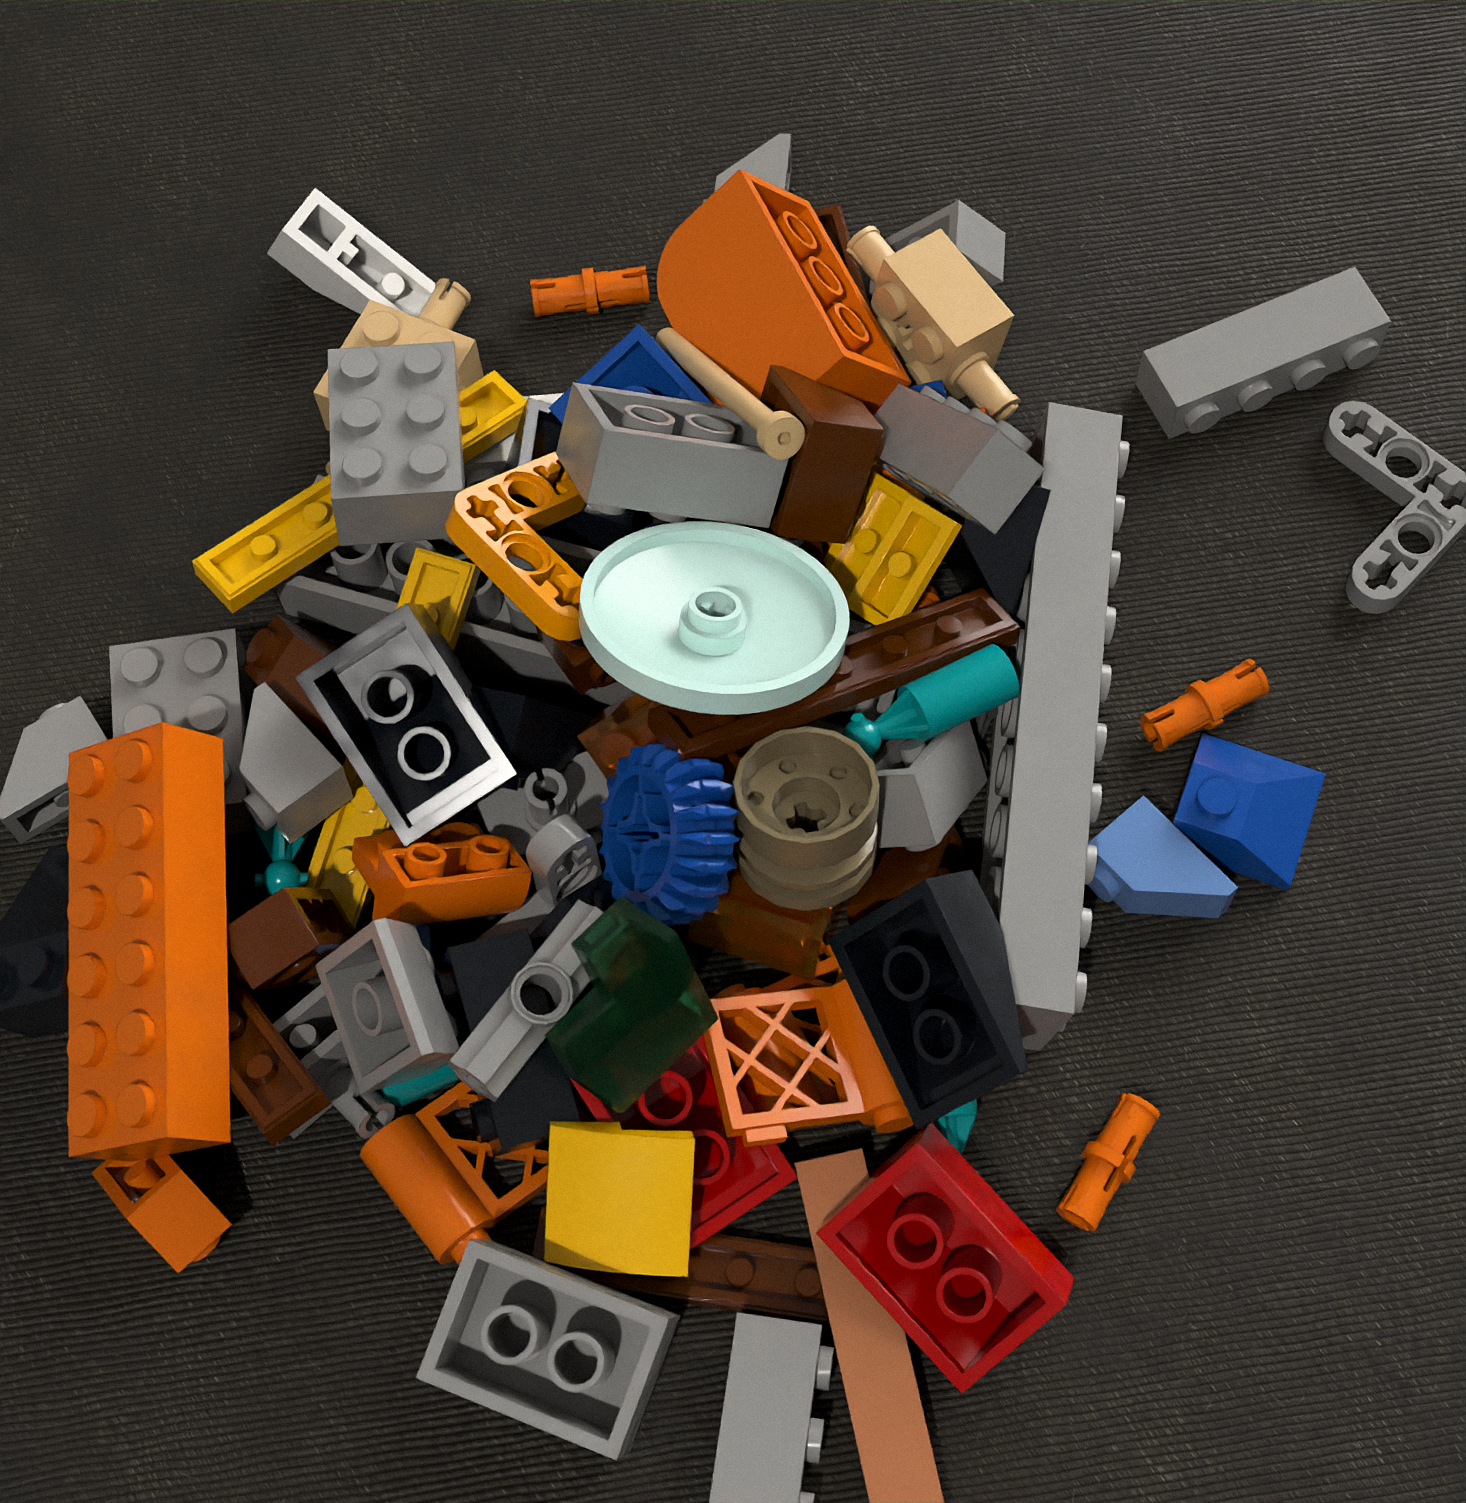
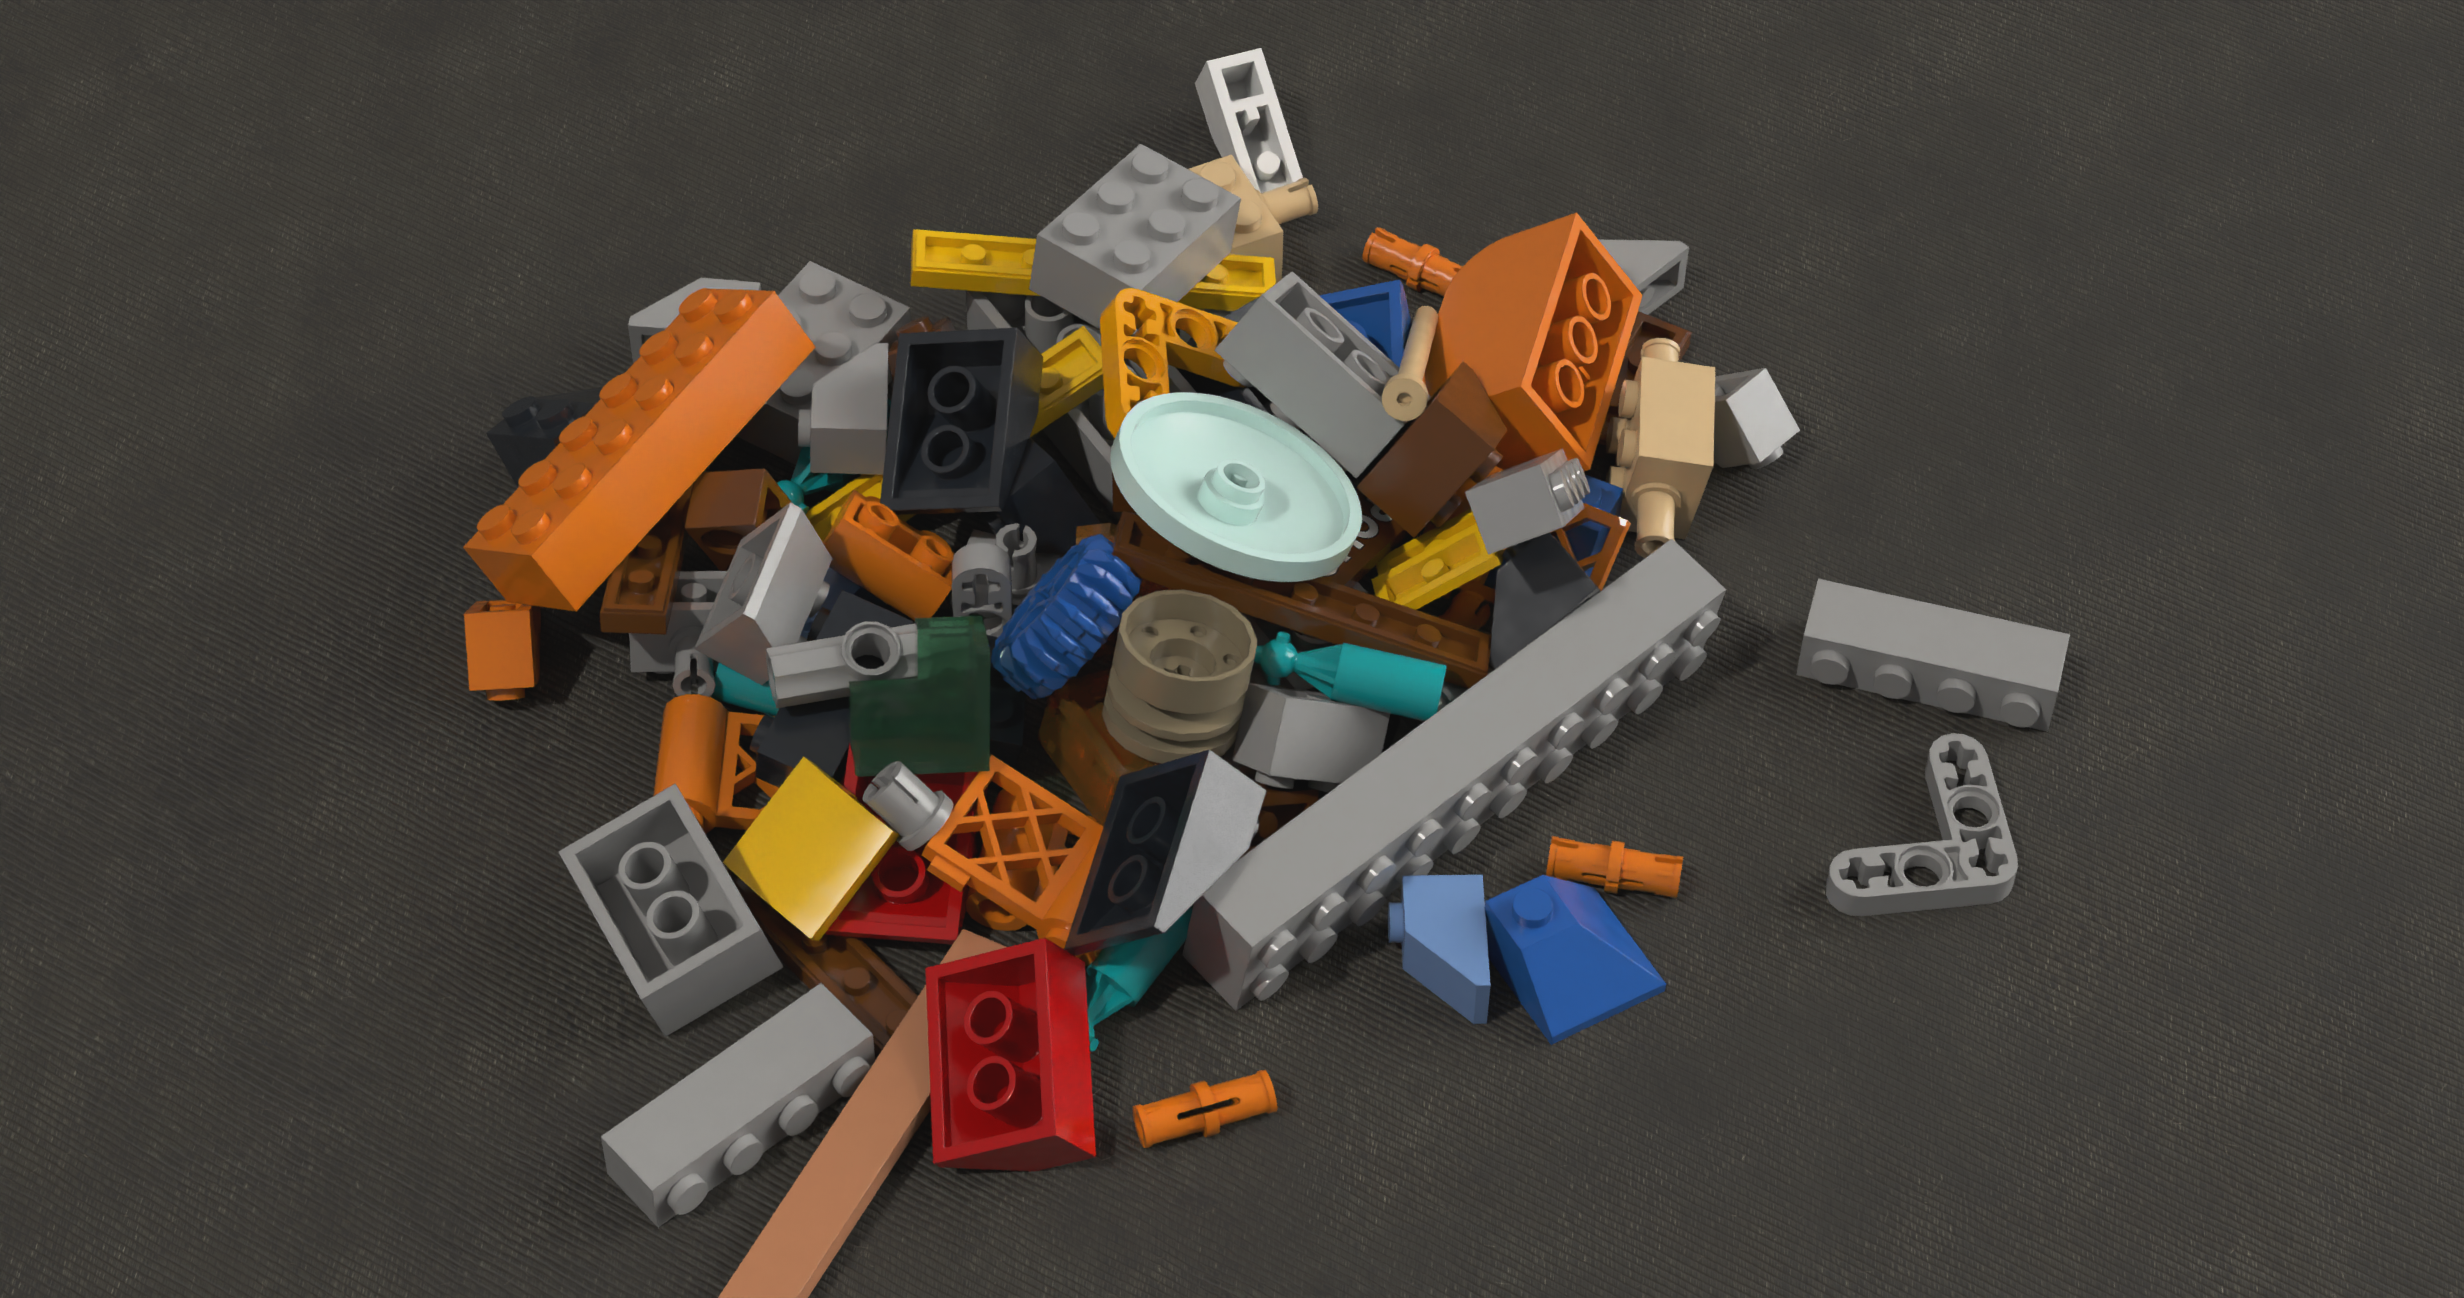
camera: 35 degrees right, 15 degrees down
(681, 1114) = (907, 805): none -> light grey bush

